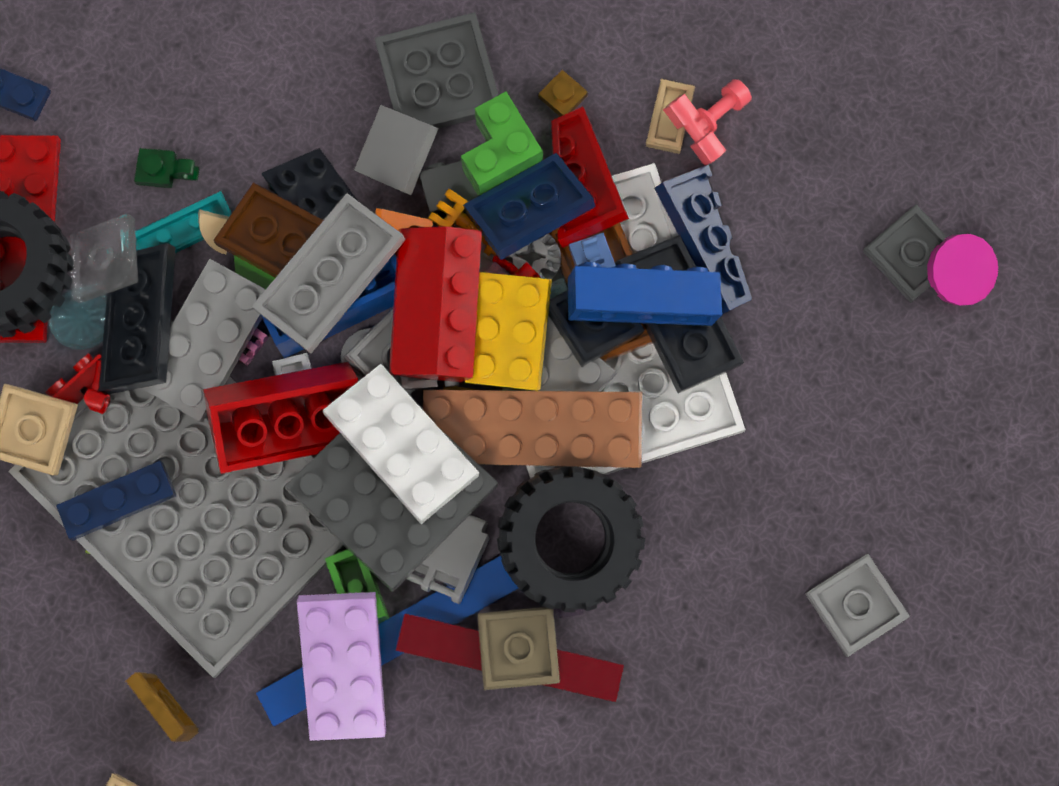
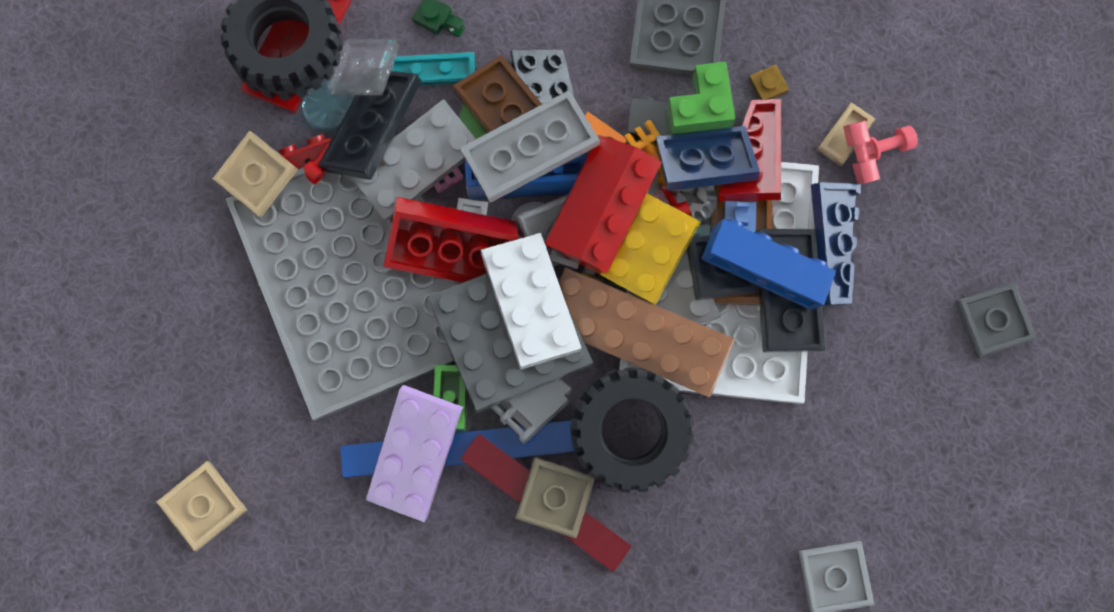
camera: 20 degrees right, 0 degrees up
(116, 500) = (296, 254): dark blue plate -> none
(162, 706) = (265, 426): pearl gold tile -> none
(210, 225) = (453, 75): tan tile -> none
(396, 149) = (621, 73): light grey tile -> none
(962, 269) = (1031, 348): dark pink tile -> none

